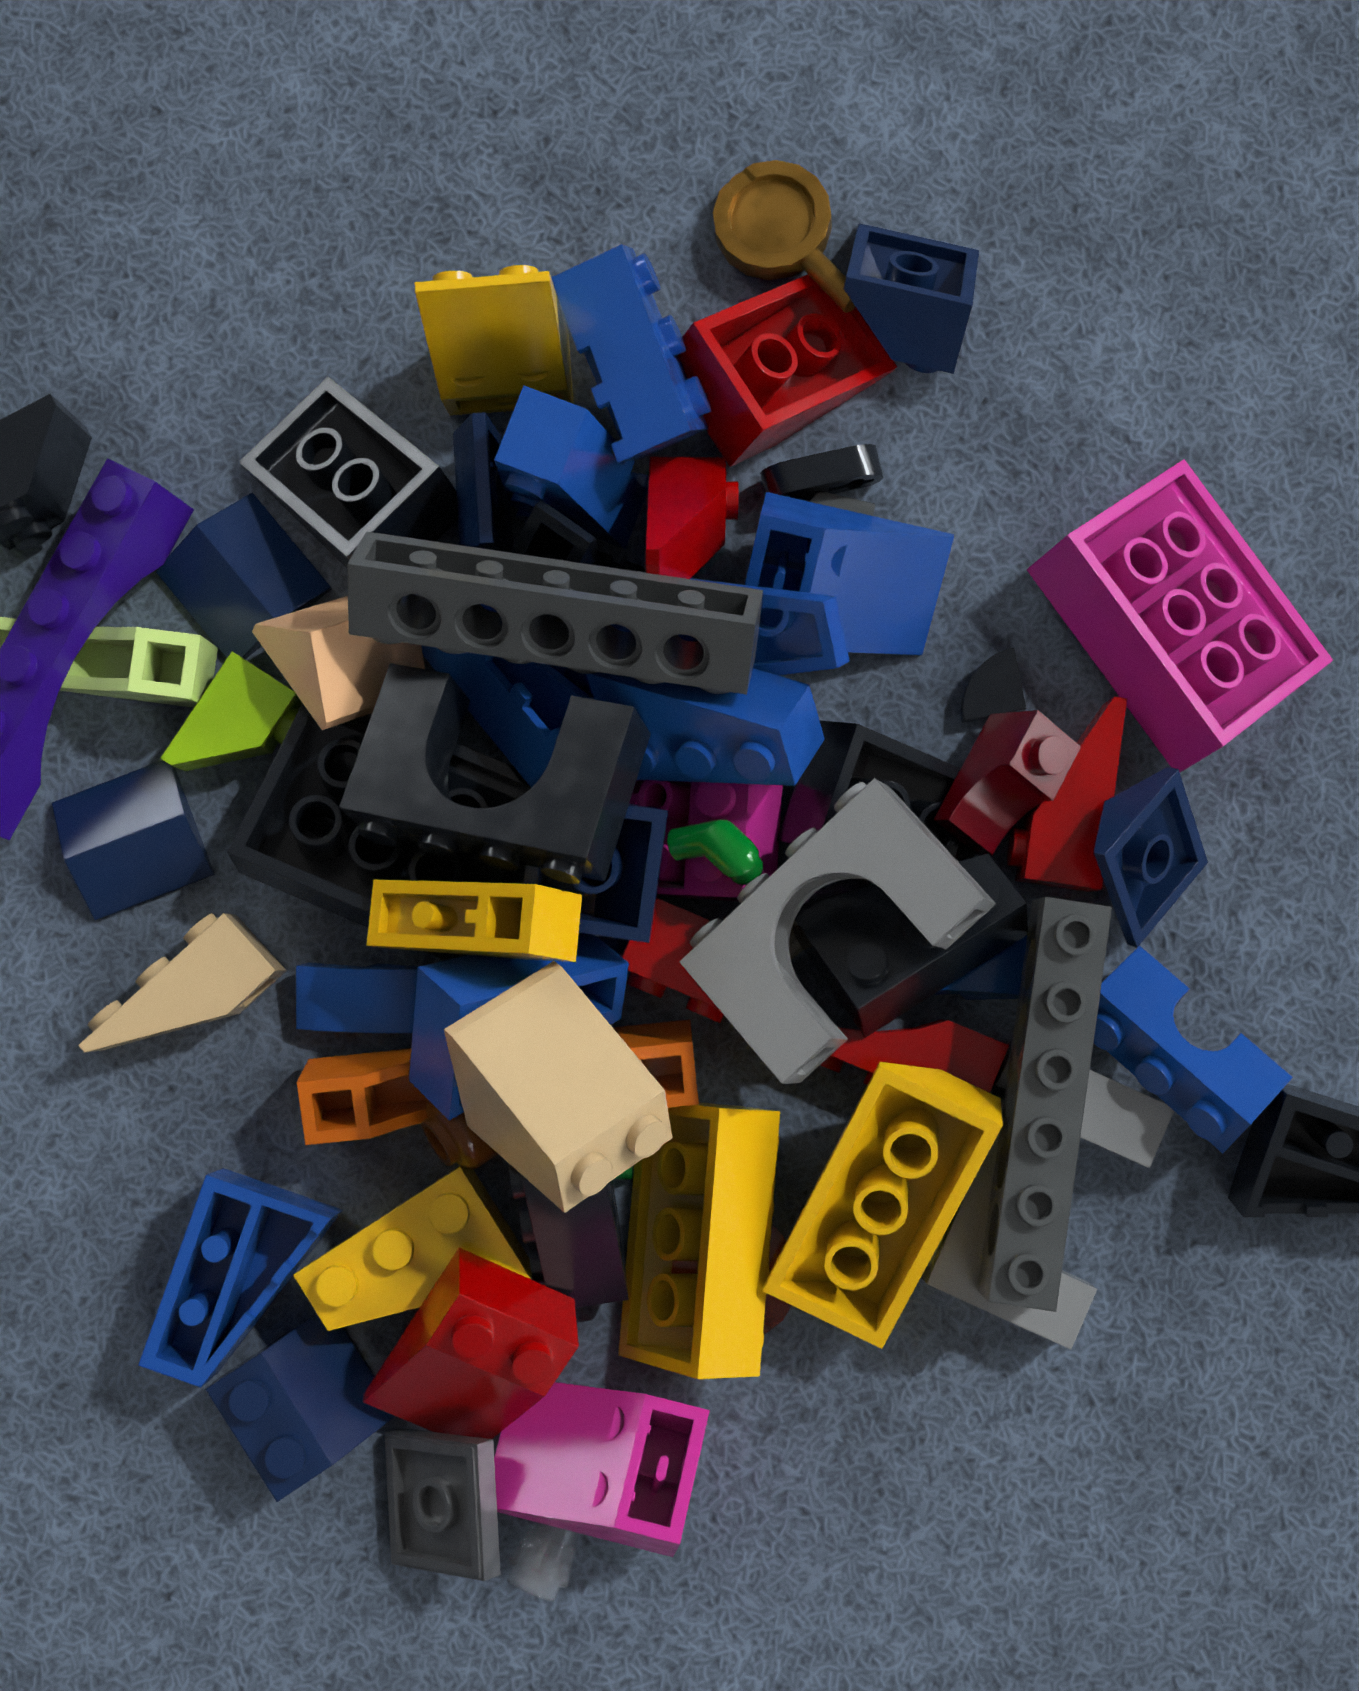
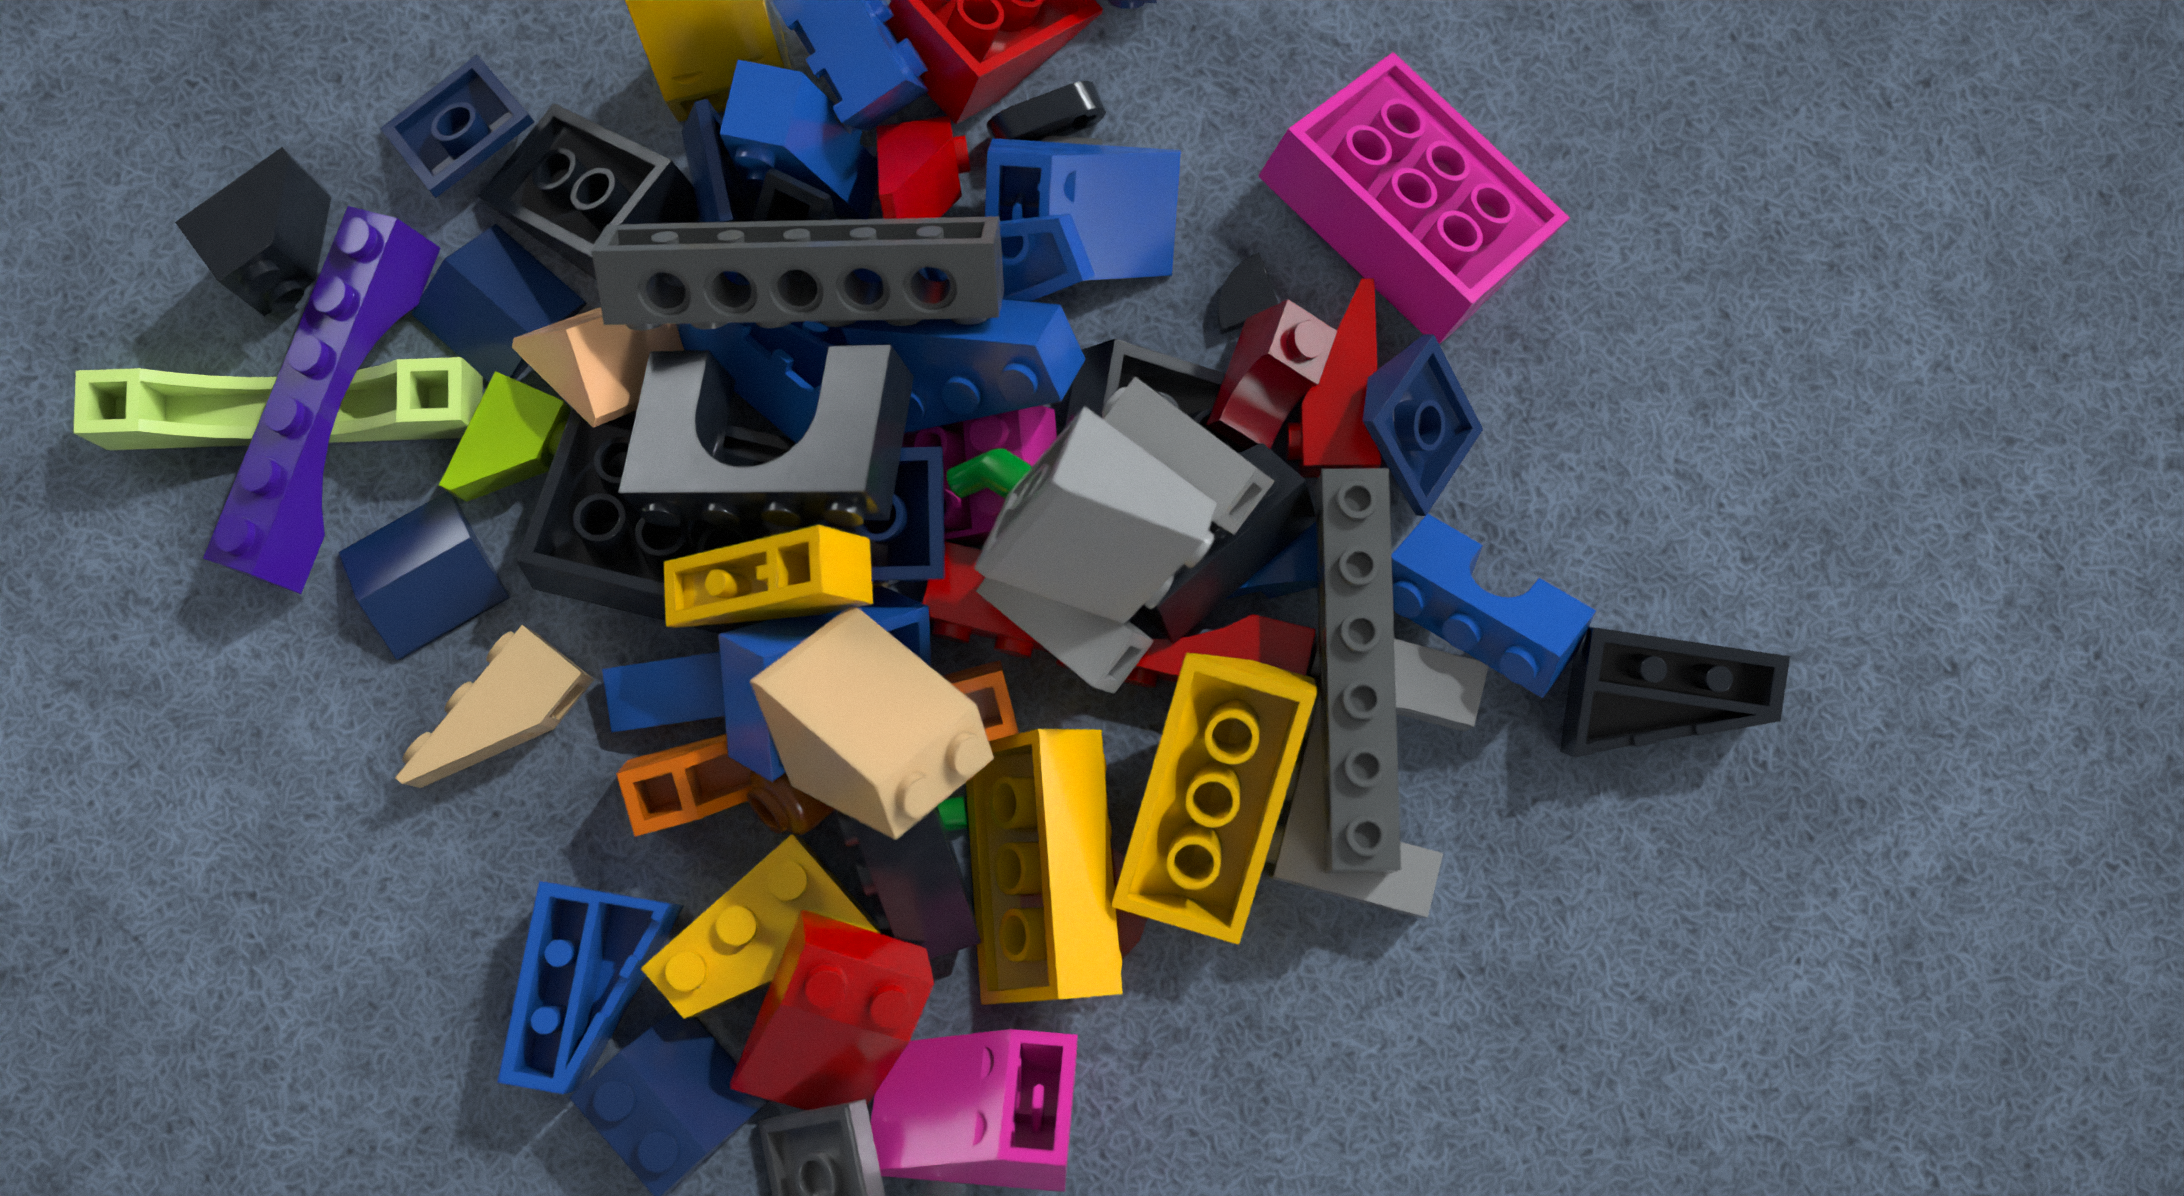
camera: 10 degrees left, 5 degrees down
(227, 387) = (456, 125): none -> dark blue slope
(813, 928) = (1098, 524): none -> light grey slope

